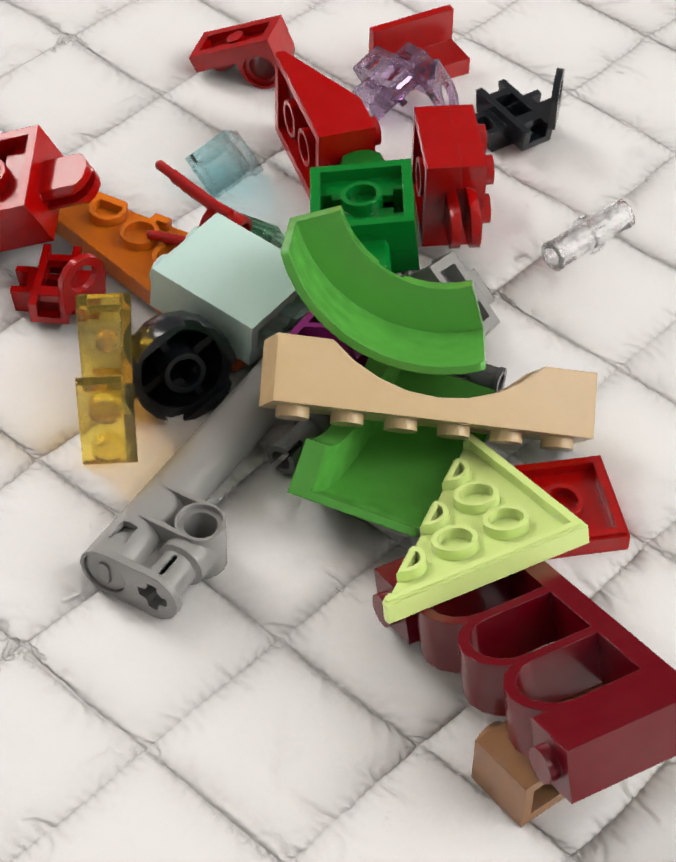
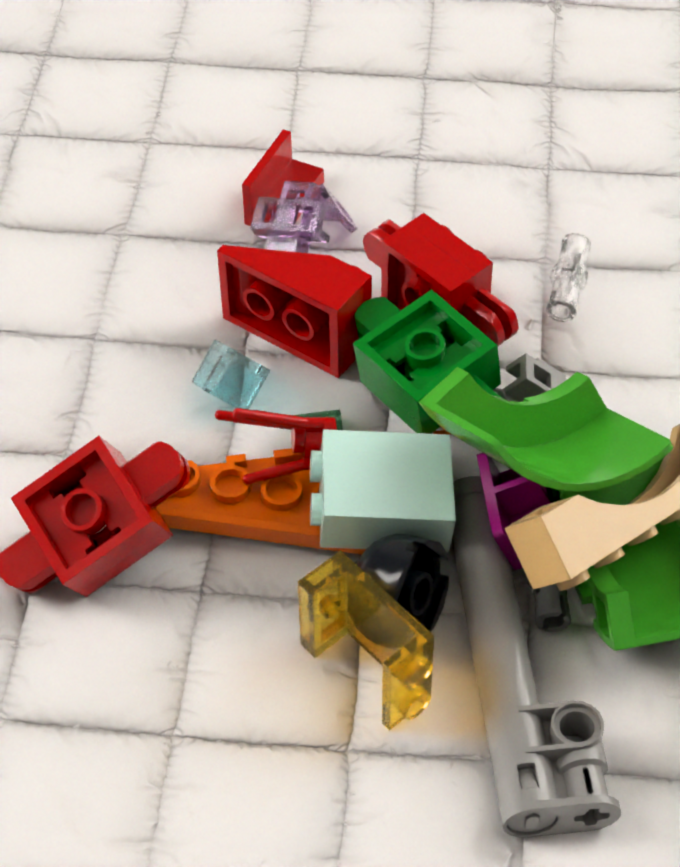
camera: 35 degrees left, 5 degrees up
(53, 296) = (199, 583): red piece -> none
(246, 45) = (146, 250): red plate -> none
(518, 117) = (436, 194): black piece -> none

